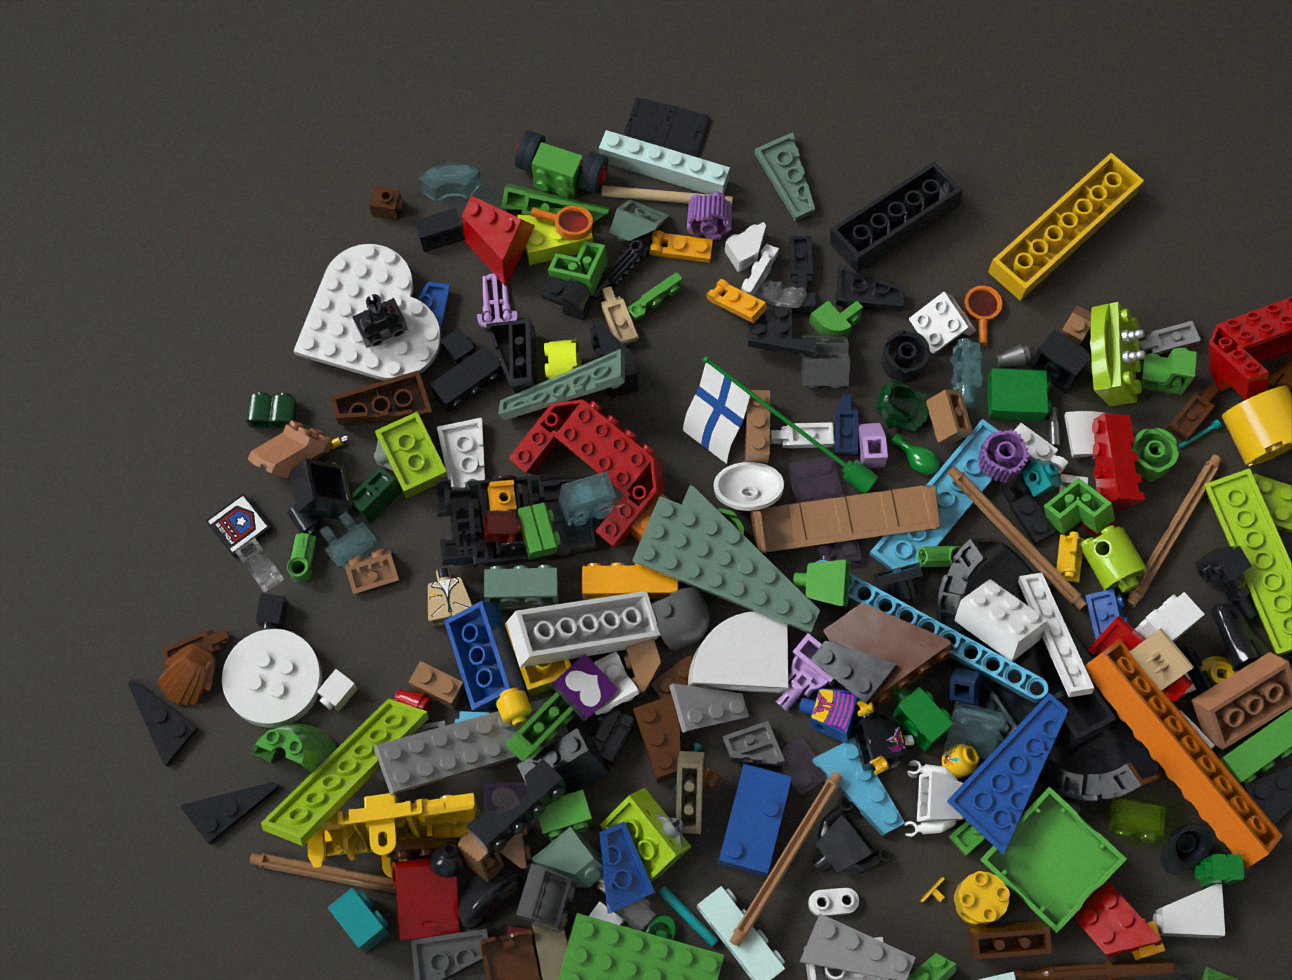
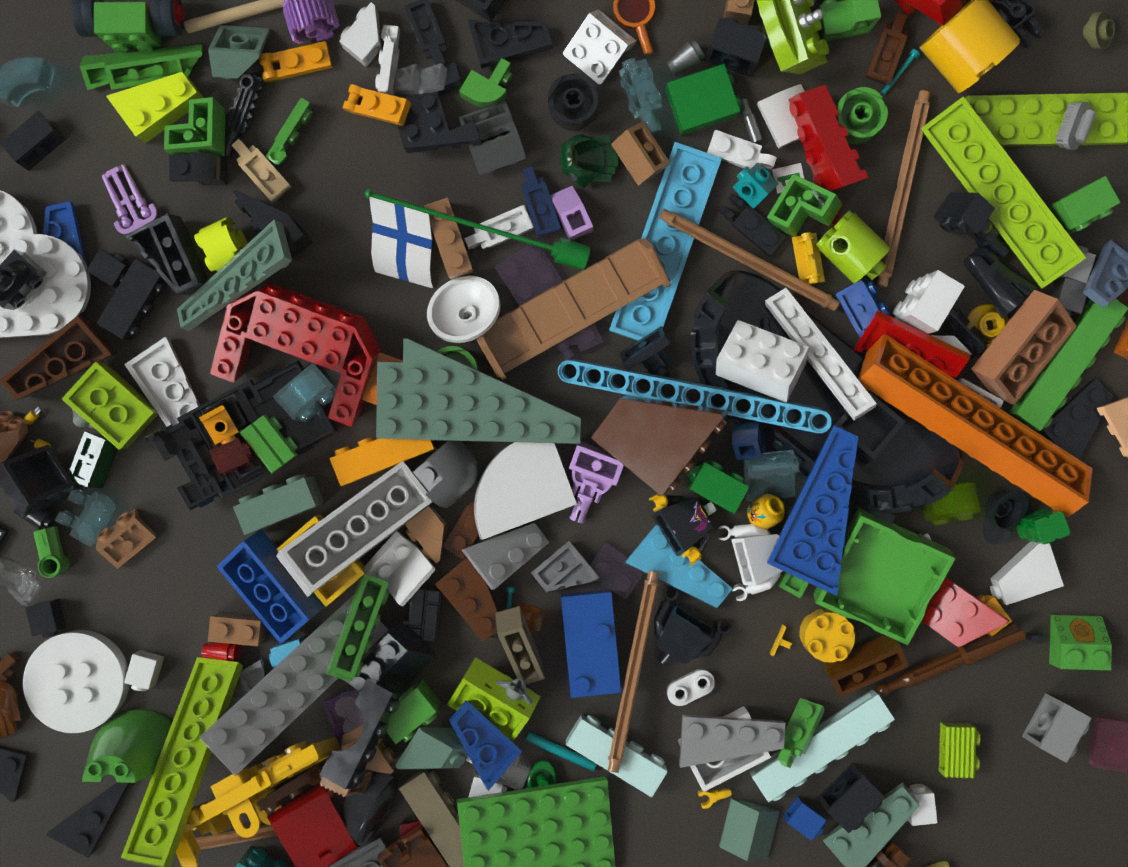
camera: 30 degrees left, 20 degrees up
(446, 597) = (211, 539): tan torso -> none
(447, 861) = (316, 799): black brick -> none
(495, 237) = (94, 128): red wedge -> none
(514, 707) = (319, 634): yellow head -> none
(546, 898) = (422, 803): dark grey piece -> none
(570, 222) = (166, 84): orange piece -> none
(584, 687) = (379, 586): tile -> none
(826, 581) = (577, 386): bright green torso -> none
(832, 712) = (627, 510): torso -> none
(854, 670) = (635, 471): wing -> none
(919, 458) = (626, 209): green piece -> none
(936, 555) = (678, 310): bright green piece -> none
(997, 465) = (702, 192): medium lavender brick -> none
(1161, 659) = (933, 345): tan piece -> none

